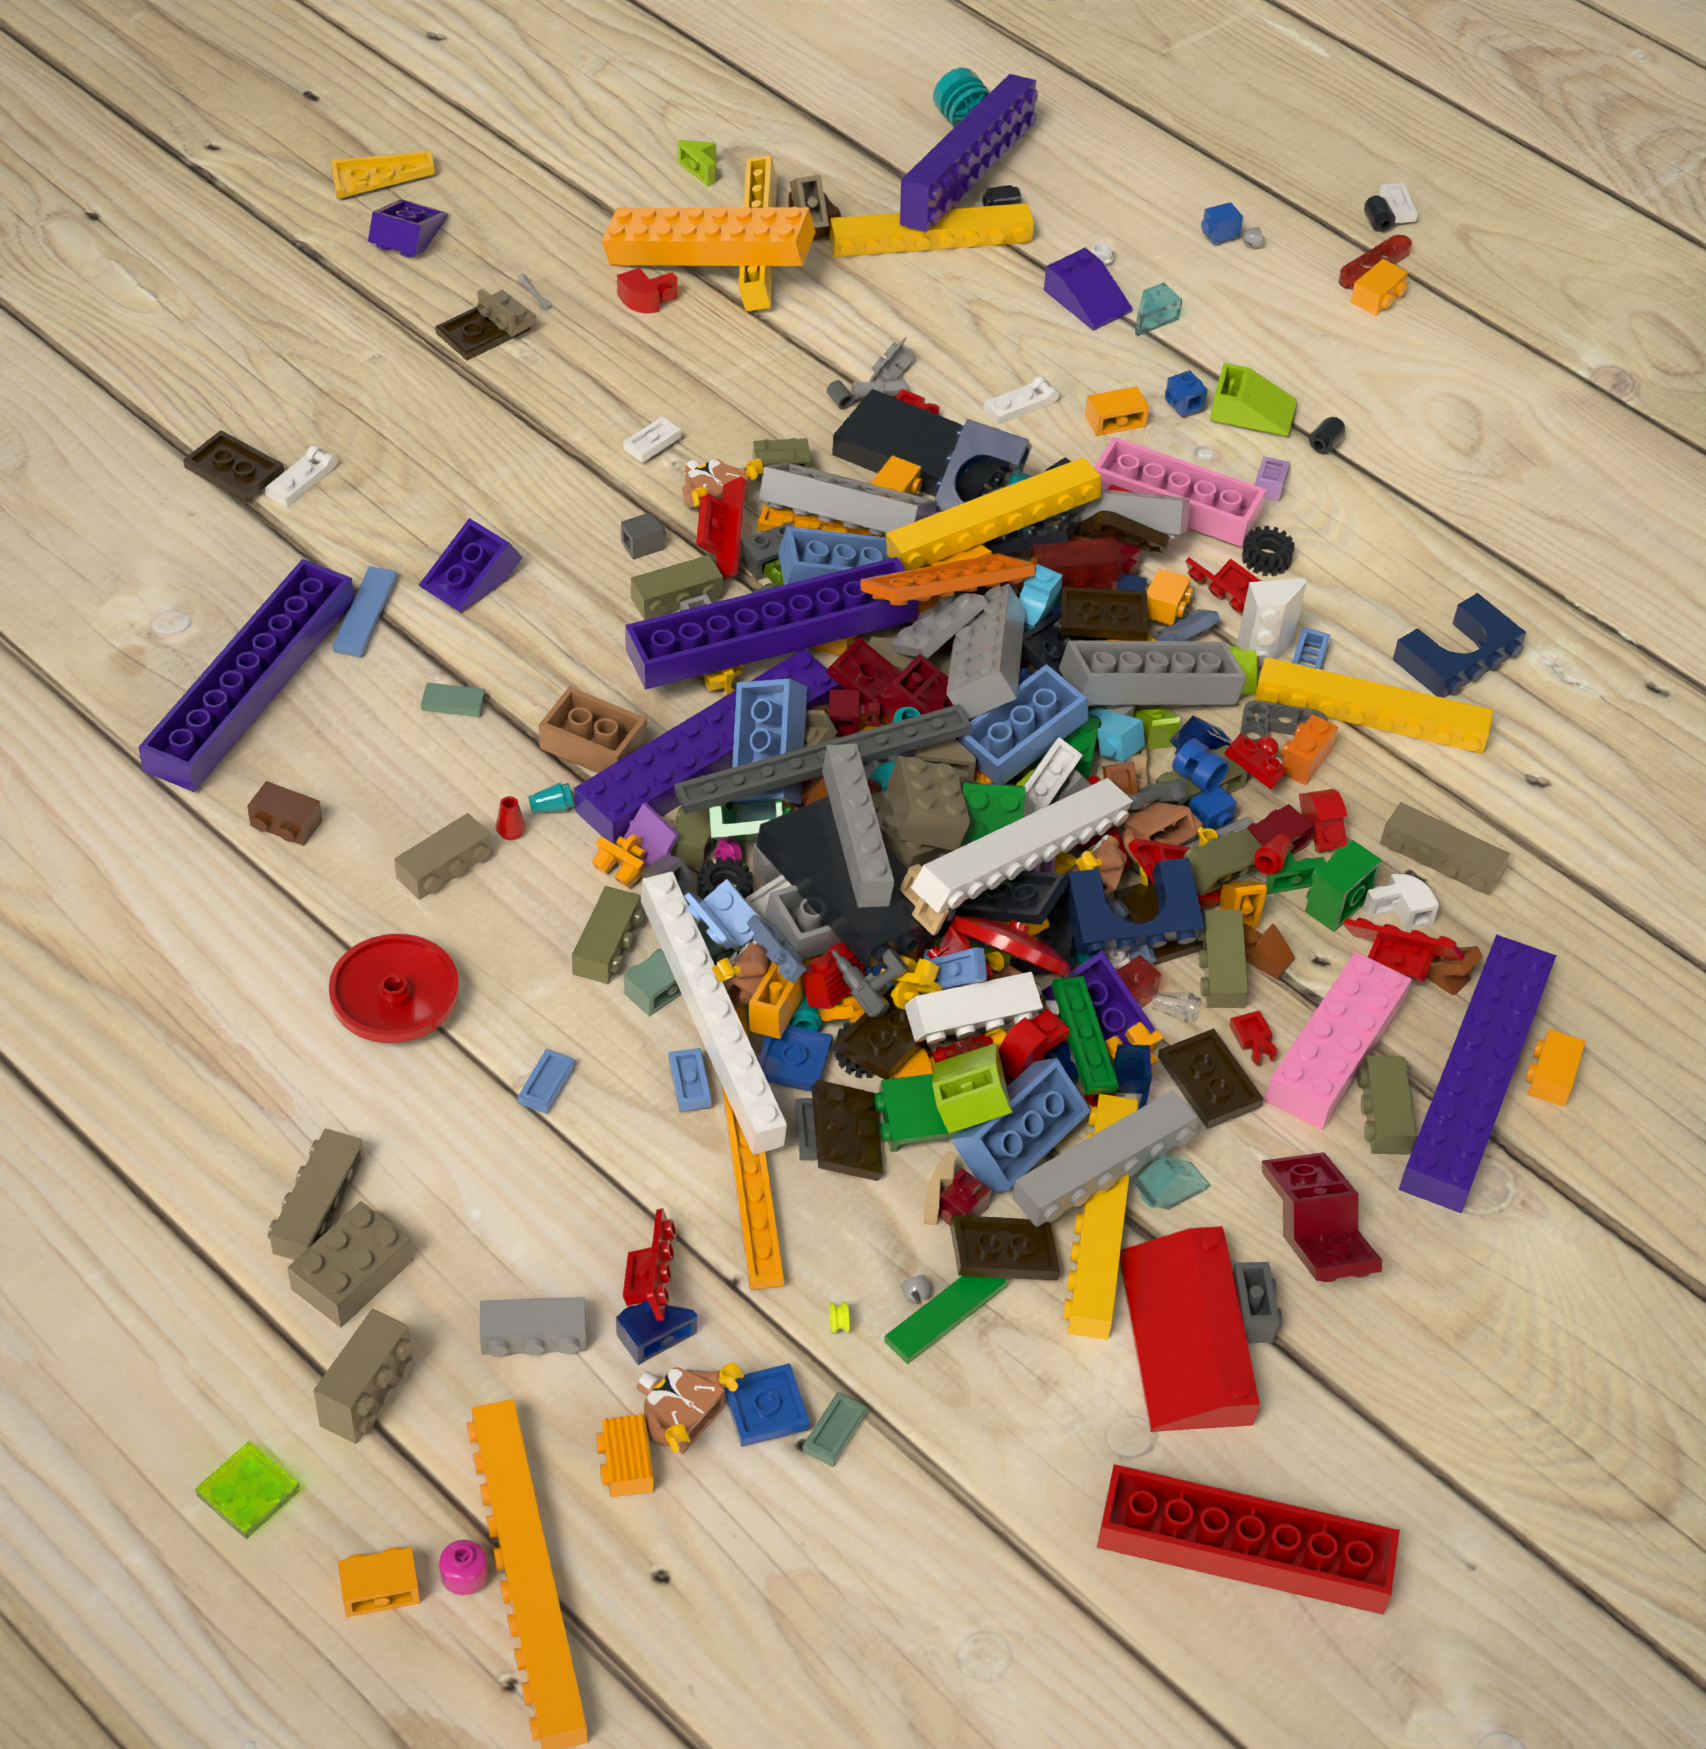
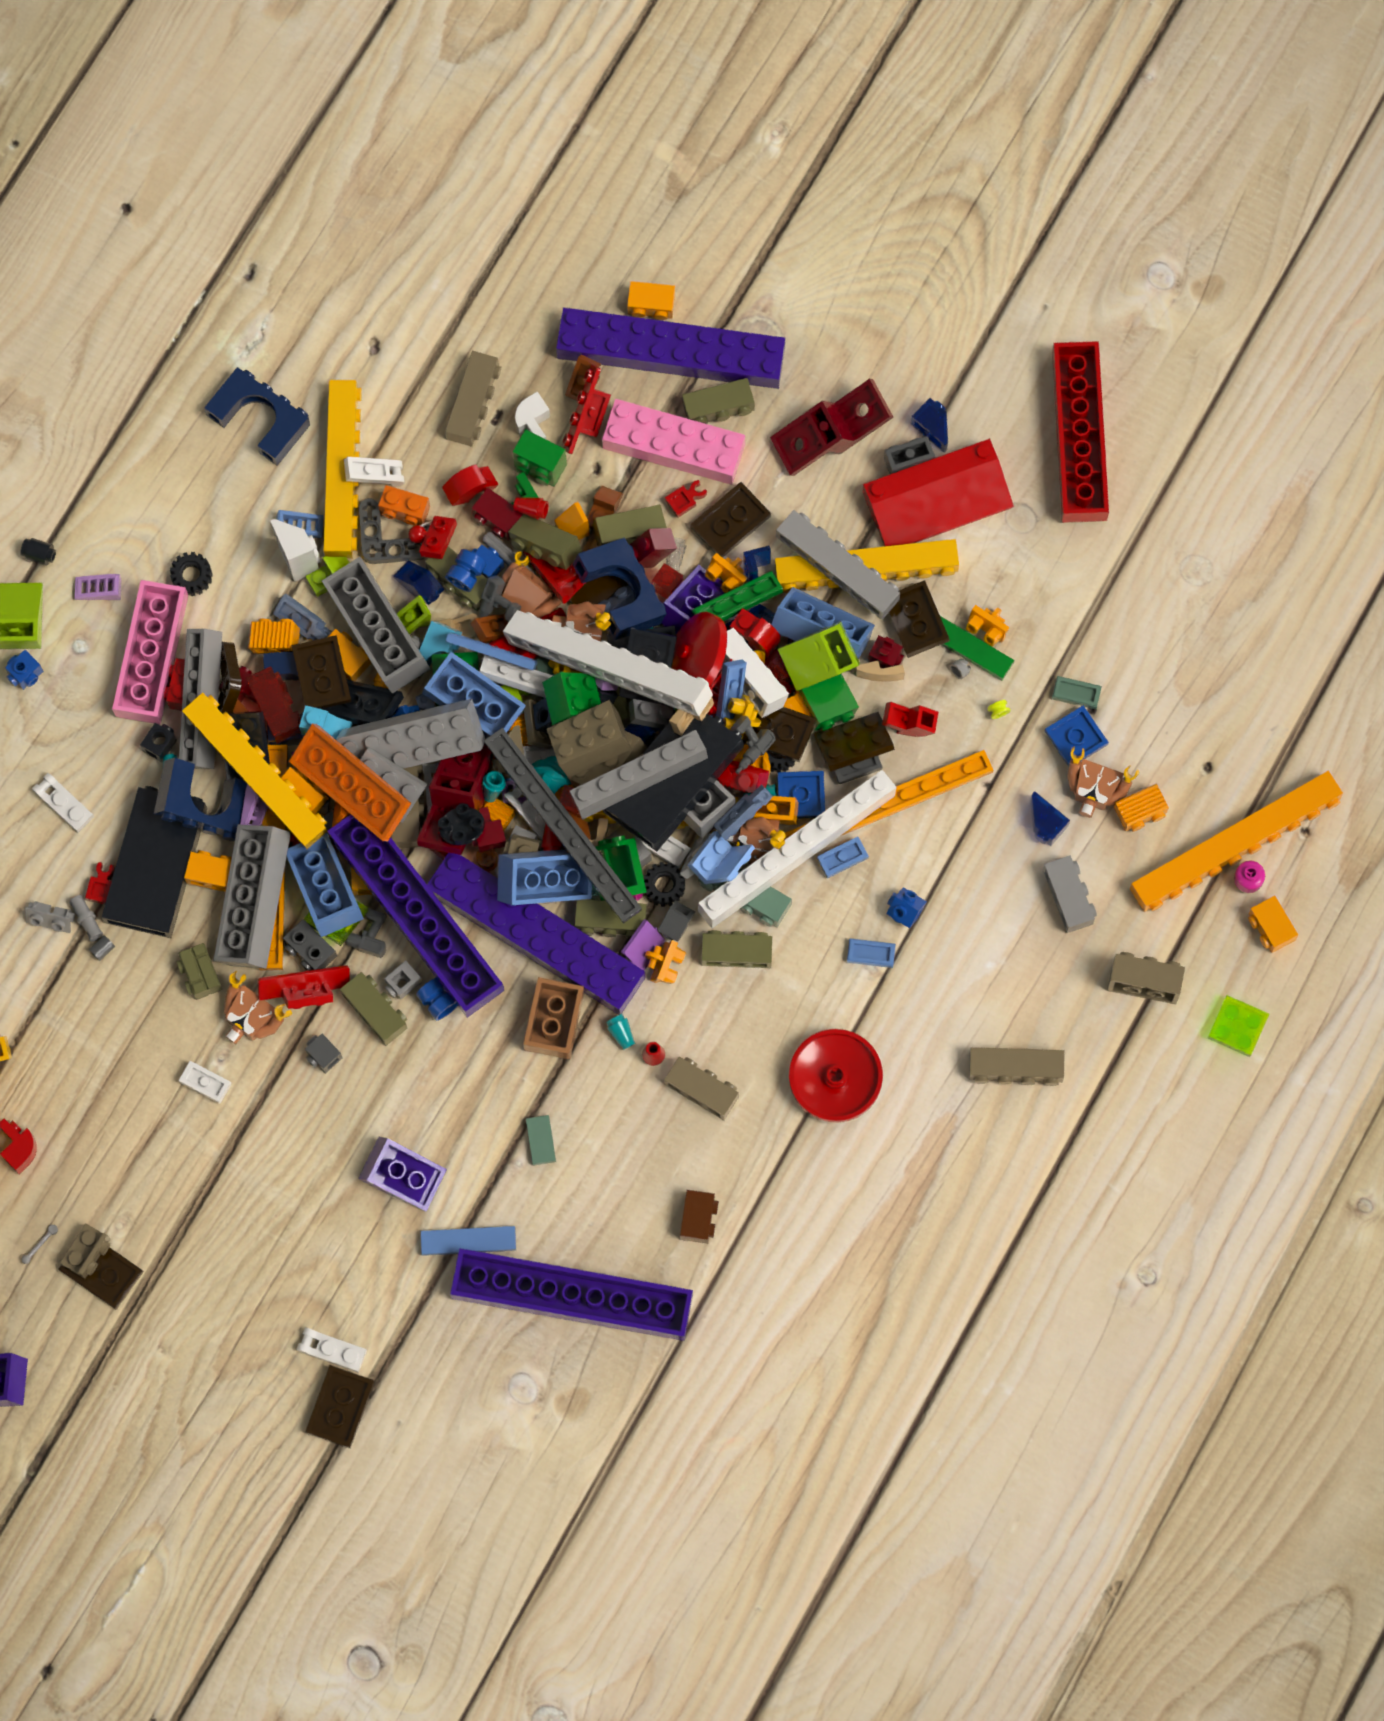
camera: 100 degrees left, 25 degrees up
(350, 1264) = (1062, 1022): dark tan brick -> none
(590, 1124) = (905, 907): none -> blue brick
(650, 1270) = (1010, 833): red bracket -> none
(856, 1201) = (913, 721): none -> red brick
(861, 674) = (461, 825): none -> black dish
(981, 1327) = (988, 622): none -> light orange hips
(1082, 756) = (491, 651): none -> medium blue tile
(1116, 411) = (58, 721): light orange brick -> none
(1170, 1182) = (831, 523): clear light blue slope -> none
(1186, 964) = (653, 546): none -> dark red brick
(1229, 582) = (243, 587): red bracket -> none
(1303, 1353) = (932, 422): none -> clear blue slope
(1361, 725) = (374, 470): none -> white plate

